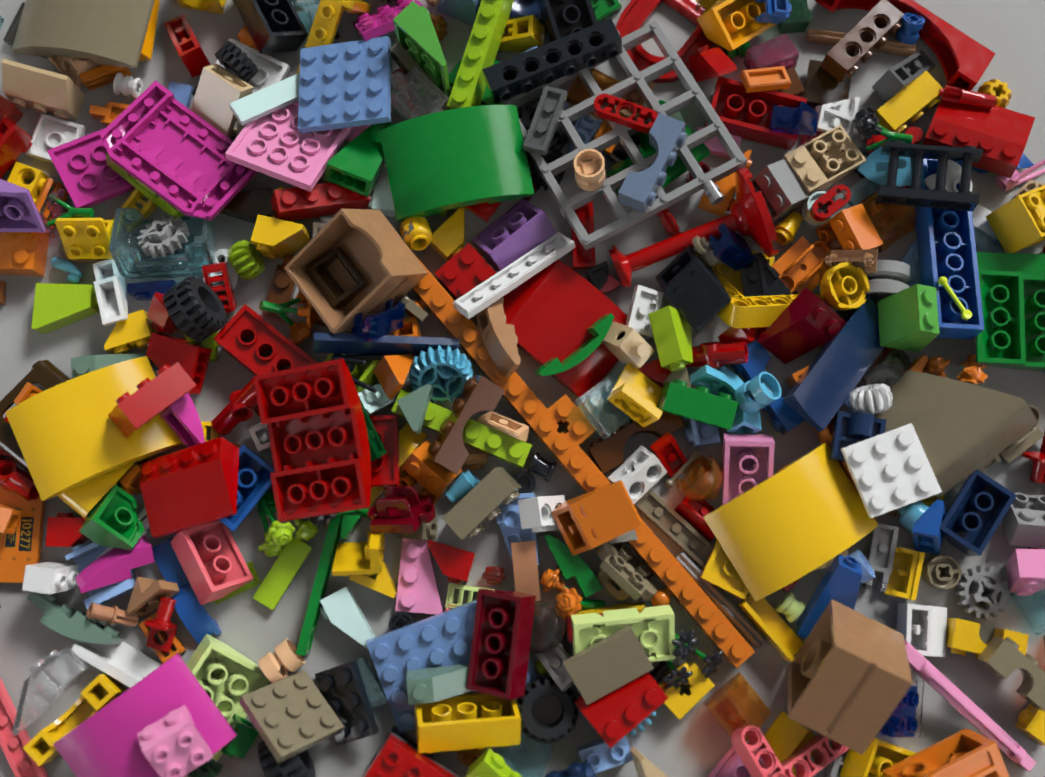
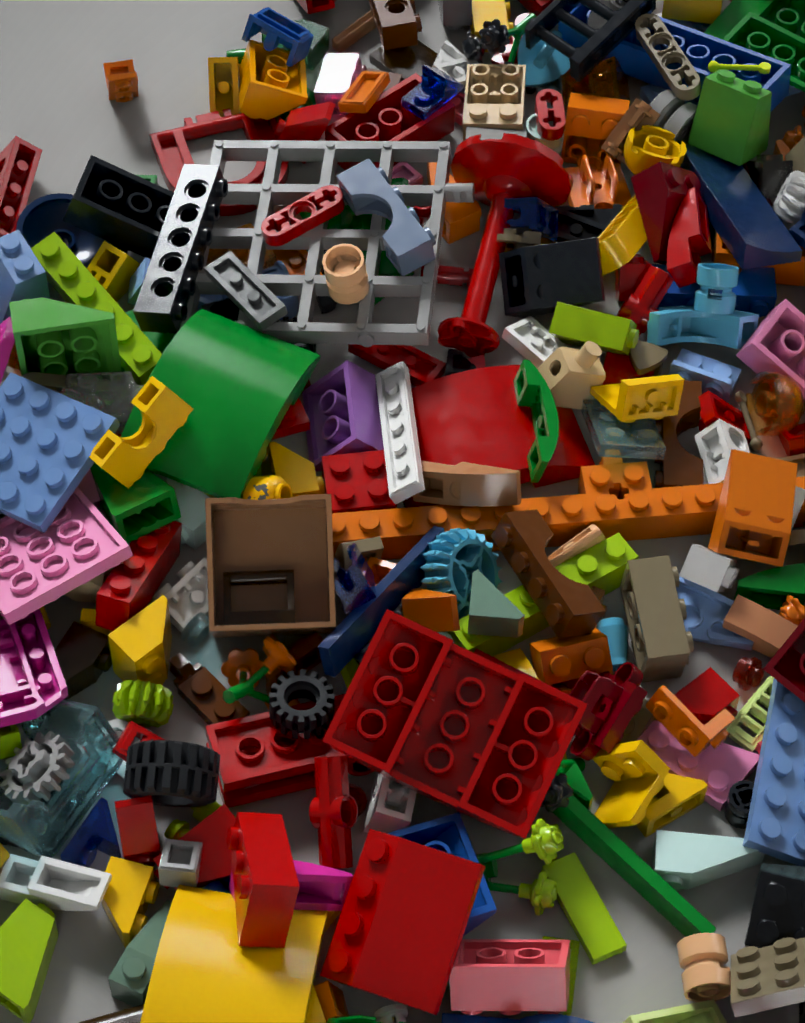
camera: 55 degrees left, 25 degrees down
(156, 348) = (180, 863): none -> light grey slope
(279, 334) = (301, 720): none -> black tyre
(402, 139) = (161, 416): none -> yellow arch
(429, 580) = (685, 725): none -> orange bracket
(542, 466) = (652, 546): black bush -> none
(698, 404) = (691, 346): green brick -> none
(787, 351) = (688, 239): none -> red slope
(931, 246) = (663, 58): none -> dark tan beam

